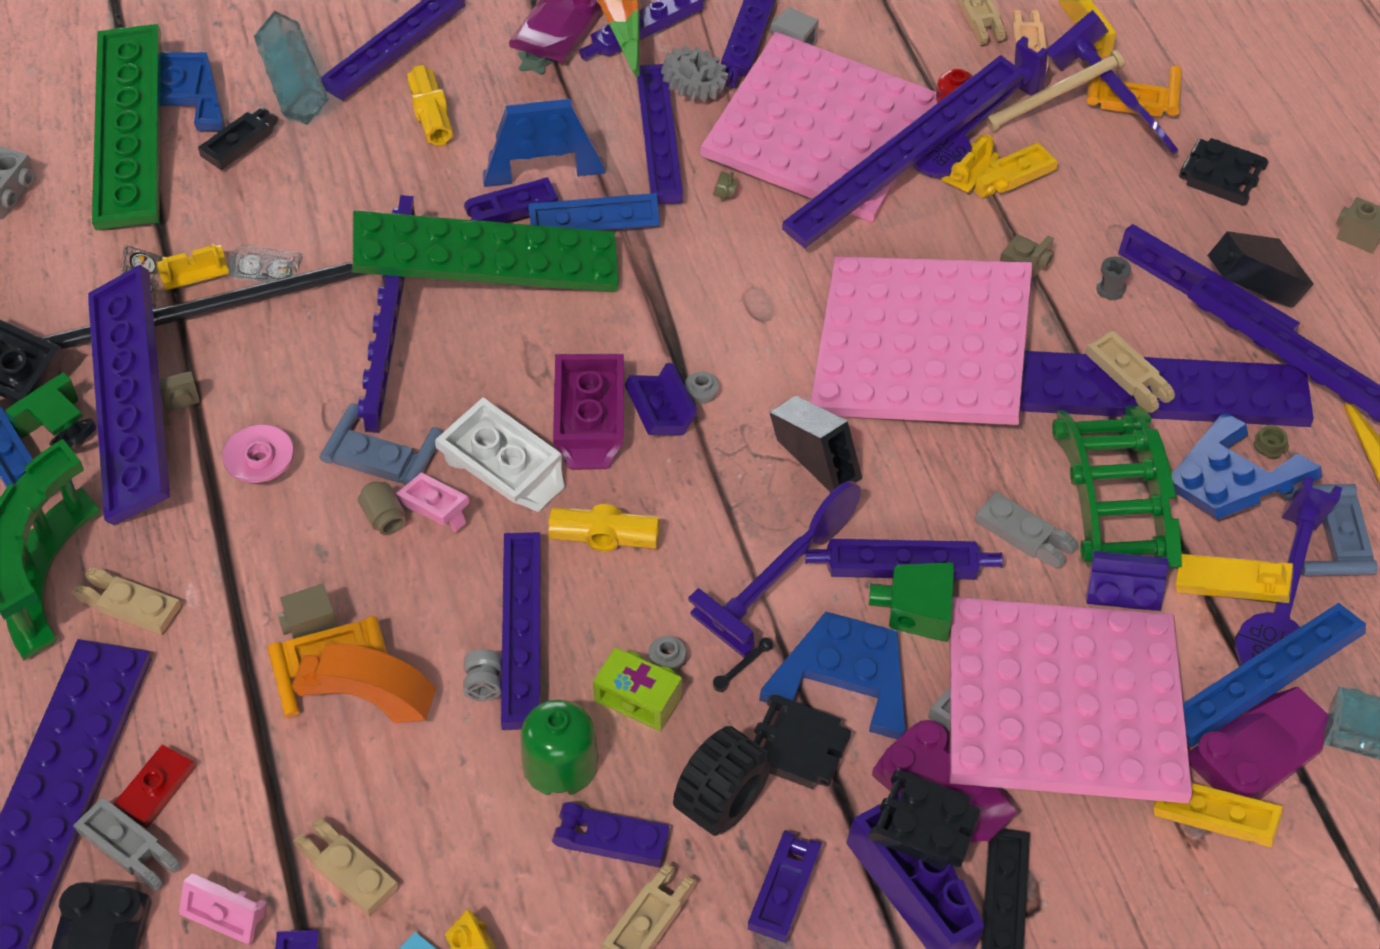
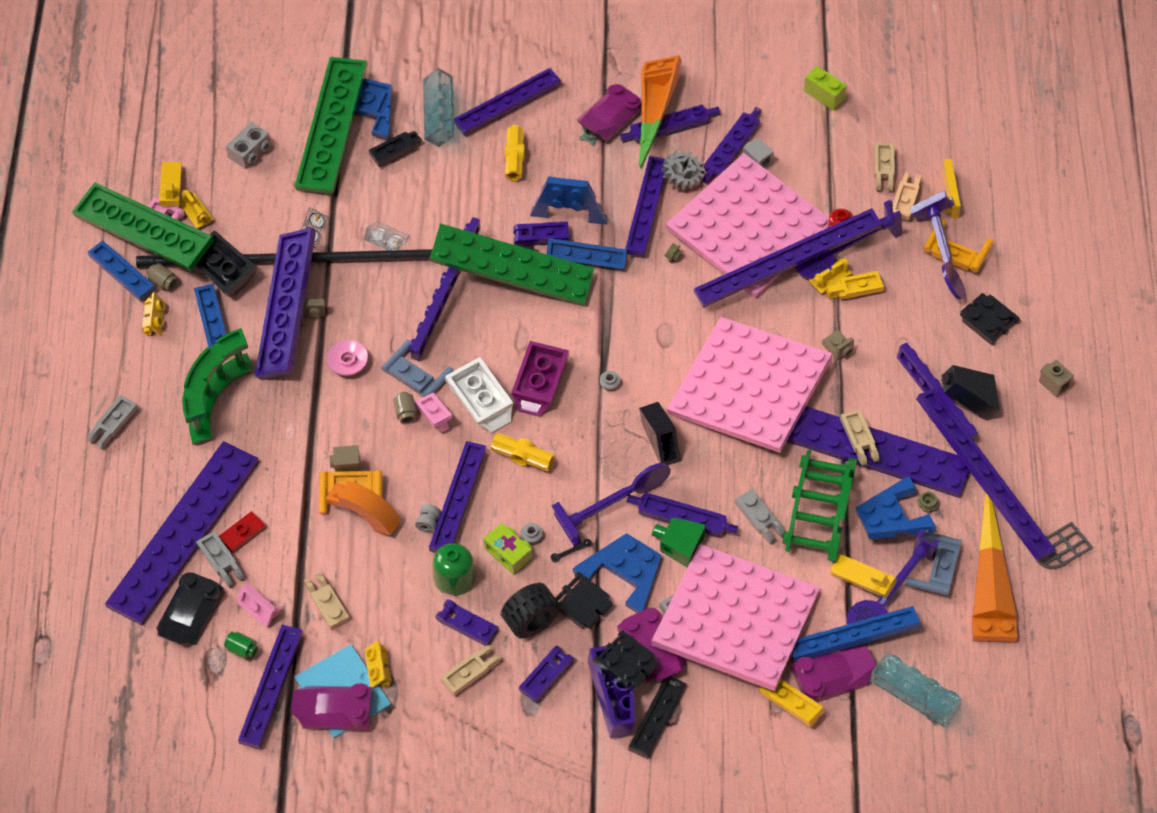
camera: 20 degrees right, 5 degrees up
(55, 410) = (243, 303): green piece -> none
(128, 601) = (255, 426): tan hinge -> none
(183, 270) = (343, 230): yellow hinge -> none
(662, 401) = (581, 384): dark purple bracket -> none
(995, 120) = (902, 238): tan bar -> none
(1114, 273) = (882, 373): dark grey bush -> none
(1127, 580) = (800, 561): dark purple plate -> none

